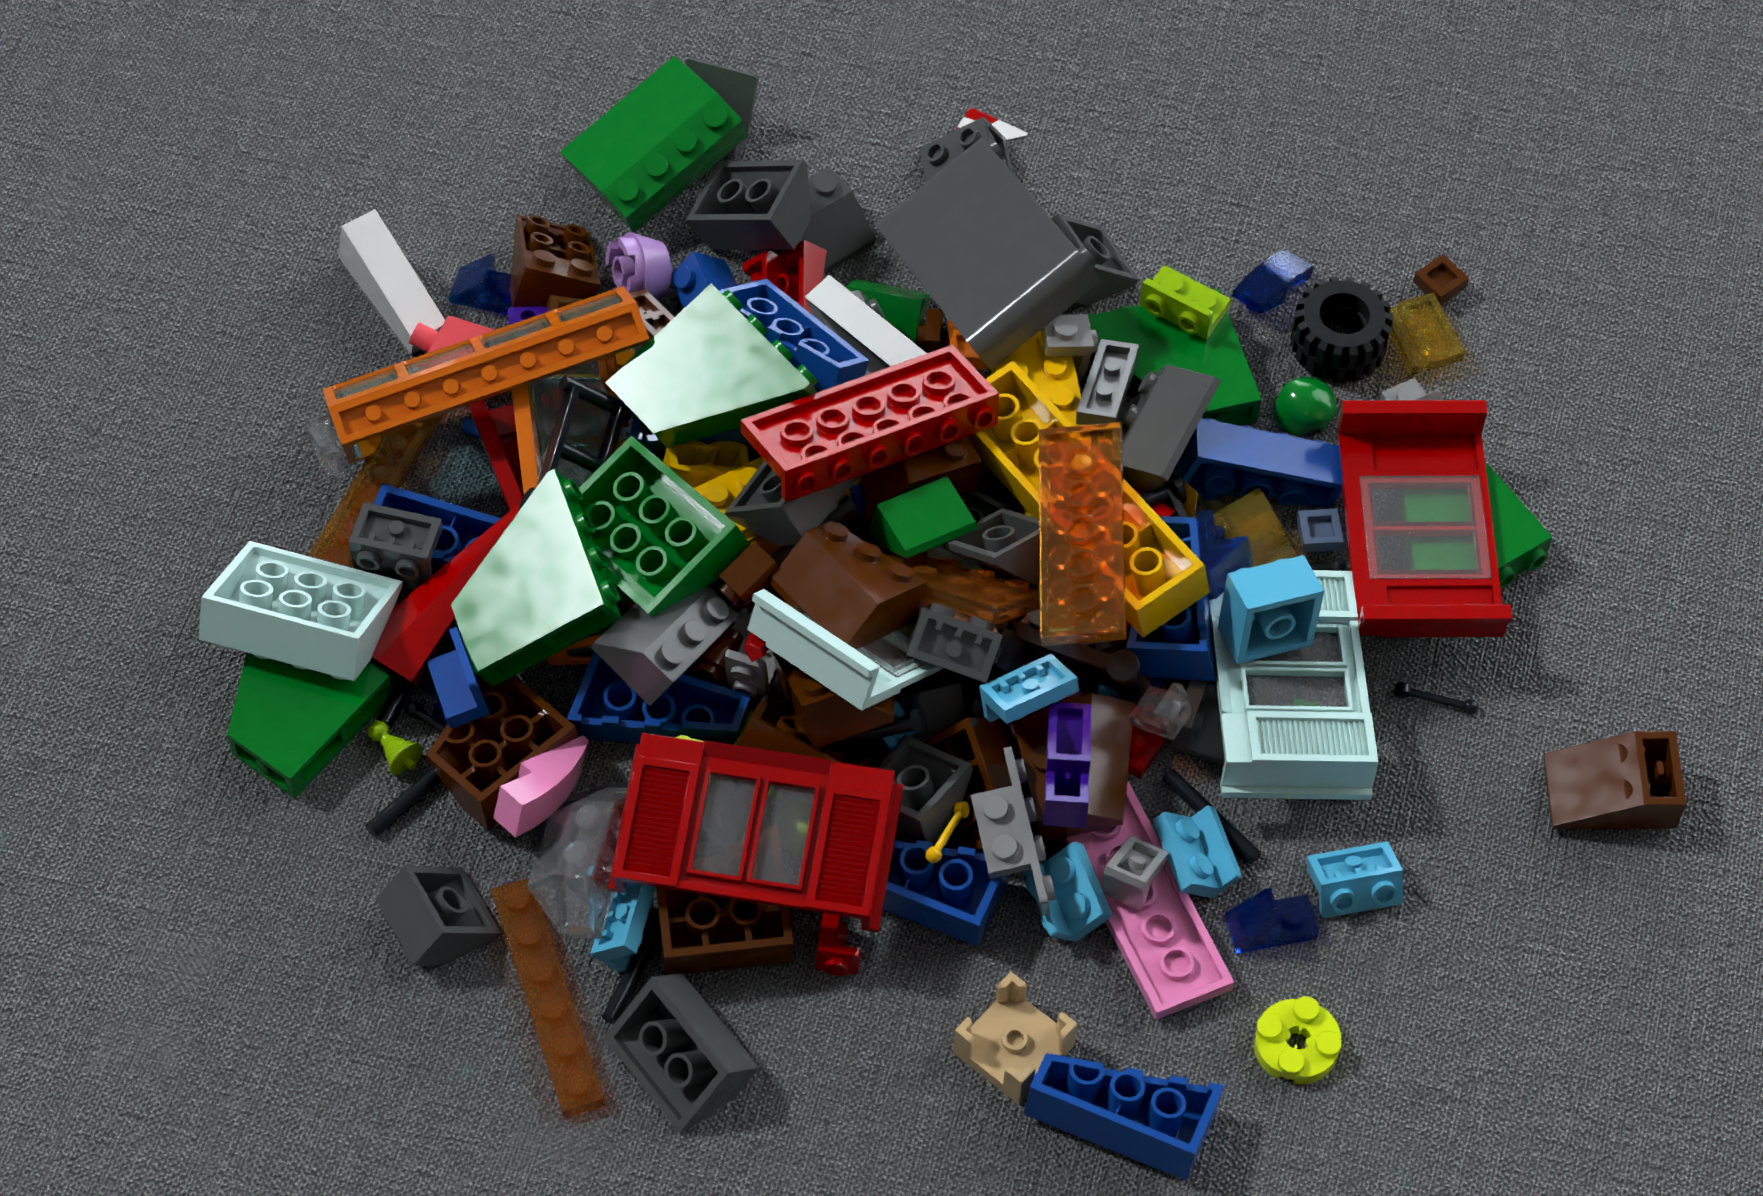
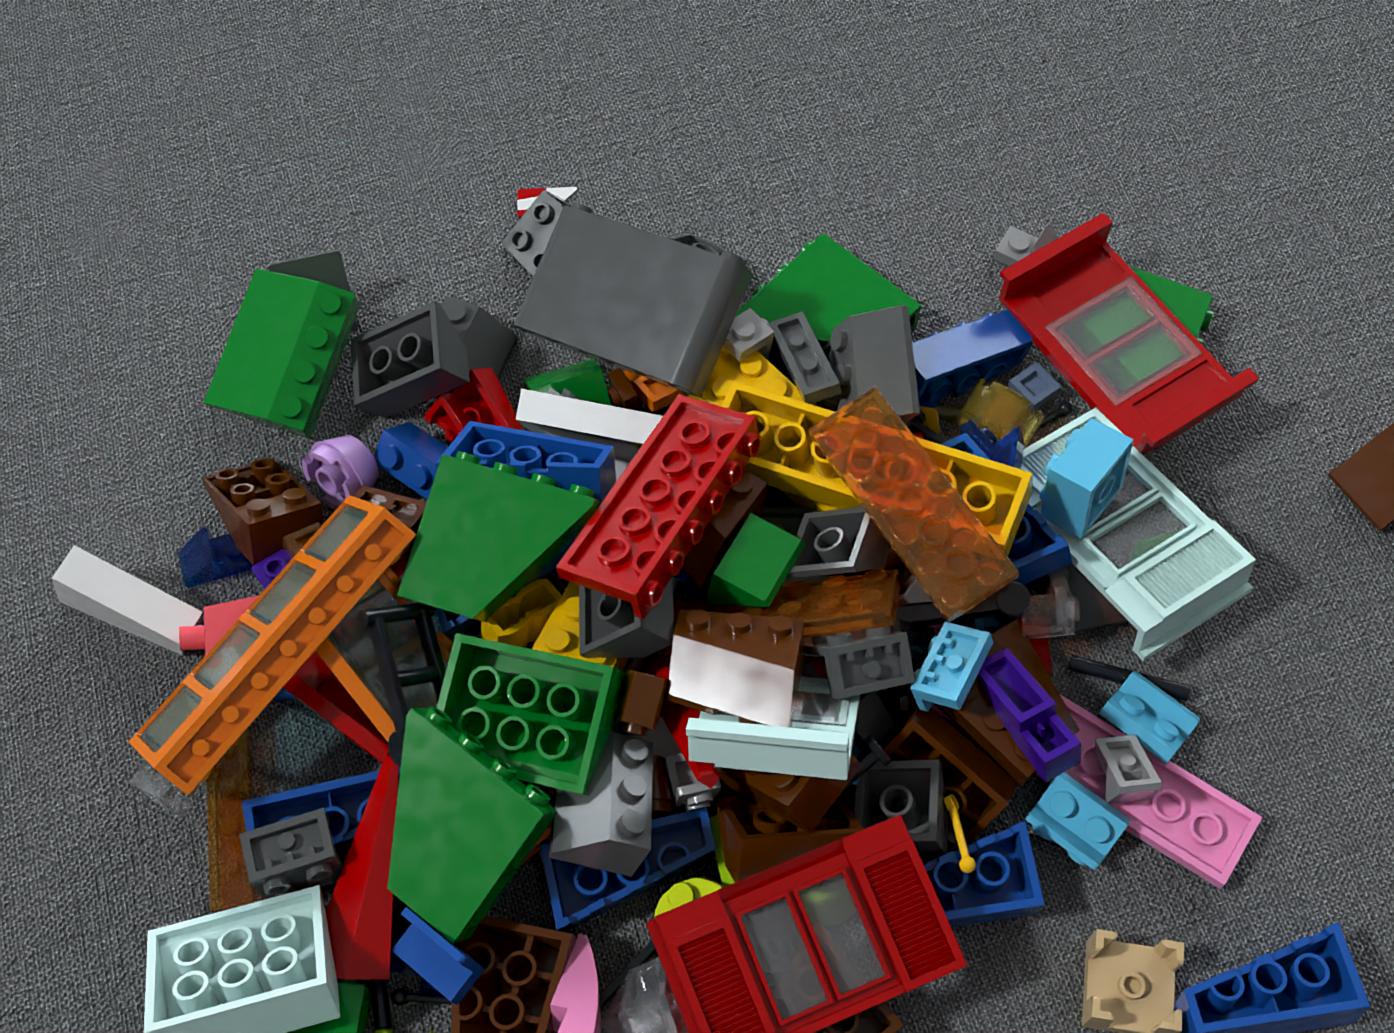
camera: 30 degrees left, 5 degrees up
(831, 949) = (924, 1006): red bracket -> none
(1006, 831) = (1012, 803): light grey bracket -> none
(1184, 302) = (808, 257): lime bracket -> none
(1269, 281) = (852, 206): clear blue slope -> none
(1270, 923) = (1242, 743): clear blue slope -> none
(1304, 1018) = (1356, 819): neon yellow plate -> none
(1305, 406) = (946, 292): green hair -> none
(1346, 305) = (936, 194): black tyre -> none
(1356, 879) = (1278, 663): medium azure bracket -> none
(1404, 690) = (1244, 466): black hinge -> none
(1424, 334) = (990, 188): clear yellow plate -> none
(1441, 278) = (972, 139): reddish brown plate -> none

